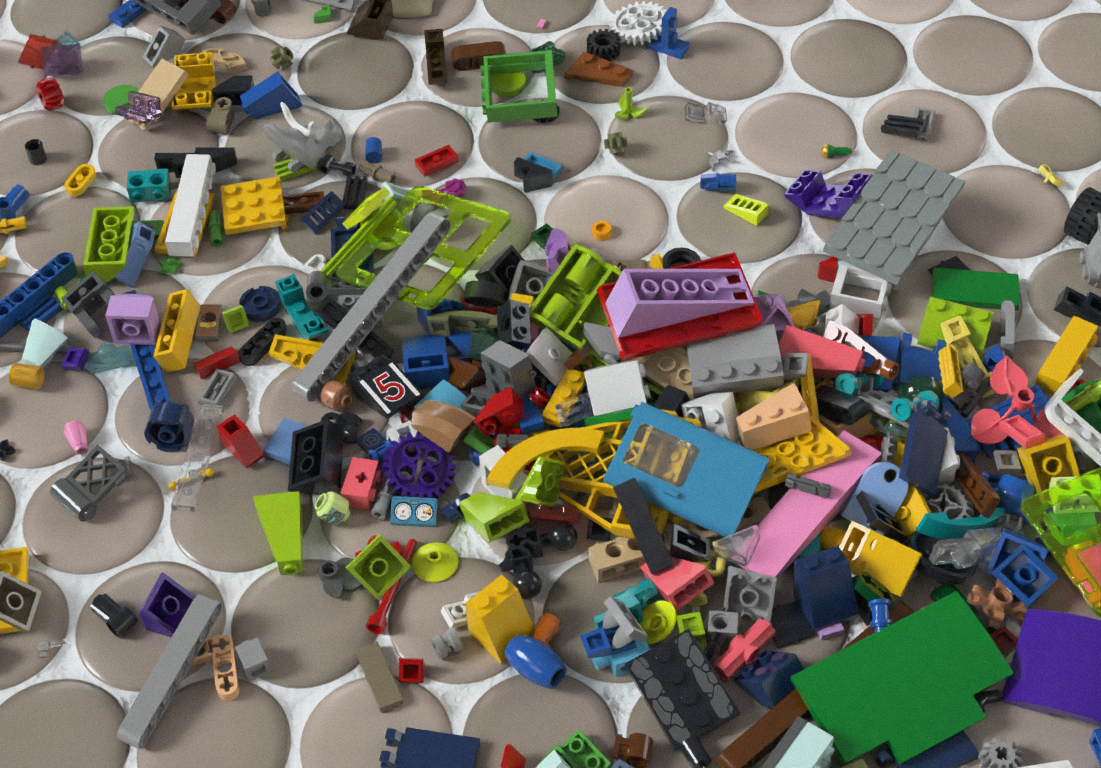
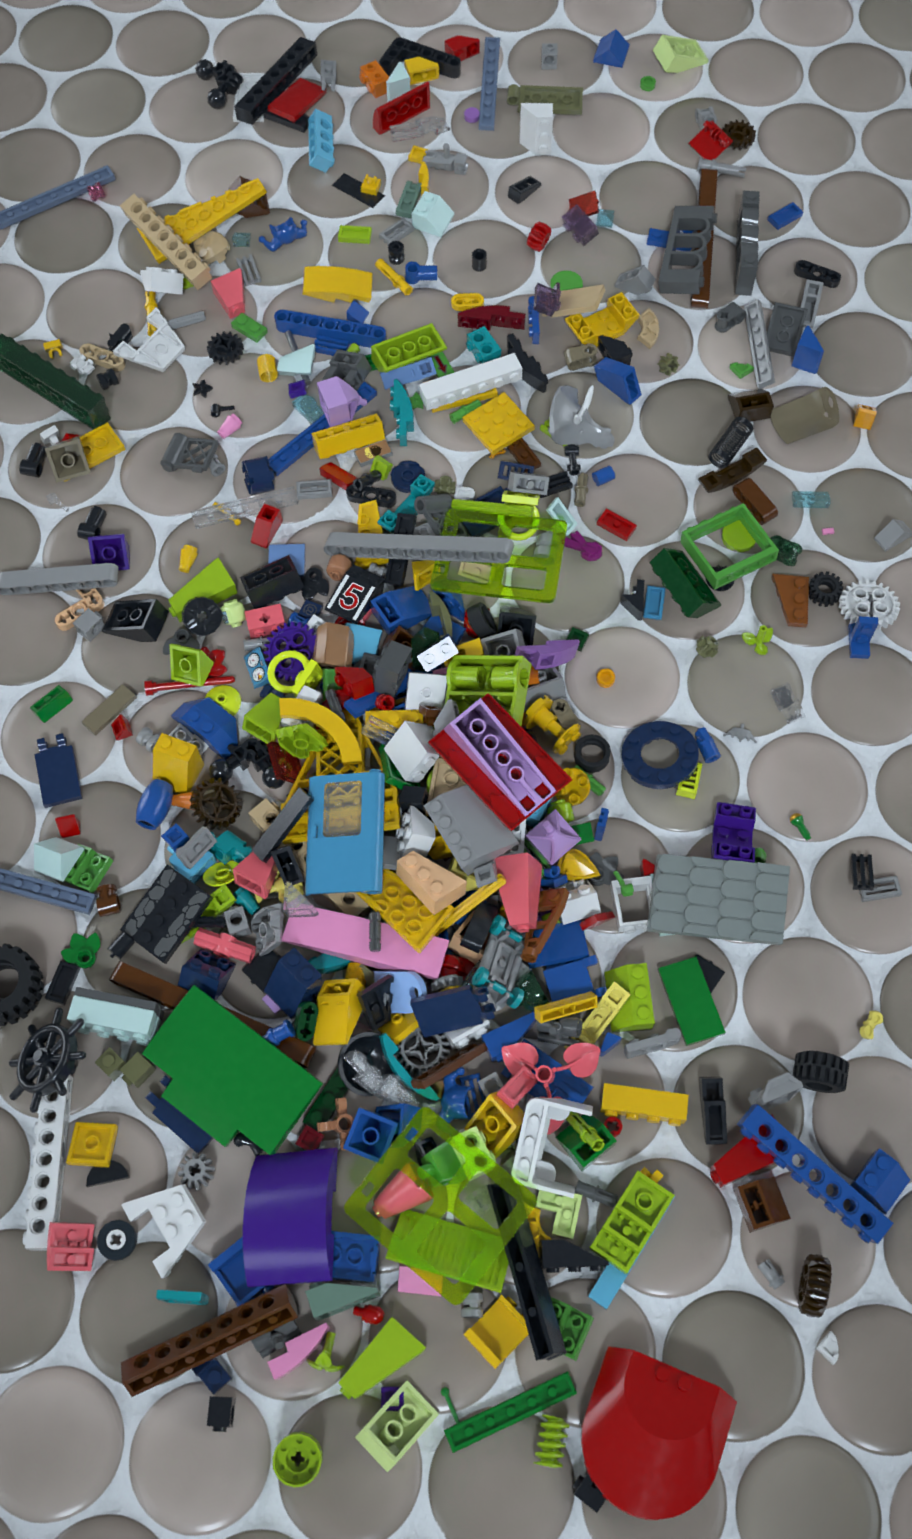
camera: 65 degrees right, 15 degrees up
(15, 275) = (357, 313): none -> blue slope
(43, 443) = (216, 409): none -> black hand
(118, 162) = (491, 316): none -> dark red slope
(148, 135) = (533, 318): none -> blue plate
(174, 275) = (402, 411): none -> teal slope
(226, 532) = (187, 557): none -> yellow cone
(245, 332) = (367, 480): none -> black pin
(276, 609) = (136, 620): none -> black slope
(300, 270) = (445, 485): none -> olive gear
(319, 536) = (207, 625): none -> black wheel
(332, 736) = (51, 703): none -> green slope
(350, 199) = (528, 483): none -> light grey brick
(390, 43) = (722, 453): none -> black piece
(392, 327) = (422, 573): none -> yellow slope
(424, 279) = (475, 571): none -> tan panel
(453, 579) = (209, 723): none -> blue wedge
(466, 463) = (309, 676): none -> neon yellow tile
(501, 21) = (808, 499): none -> clear light blue slope
(536, 135) = (684, 583): none -> dark green slope
(569, 597) = (211, 818): none -> dark brown gear
(703, 608) = (246, 899): none -> teal cone
(725, 236) = (660, 777): none -> dark blue plate
(763, 278) = (601, 825): none -> blue tile
(847, 284) = (626, 890): none -> bright green hand

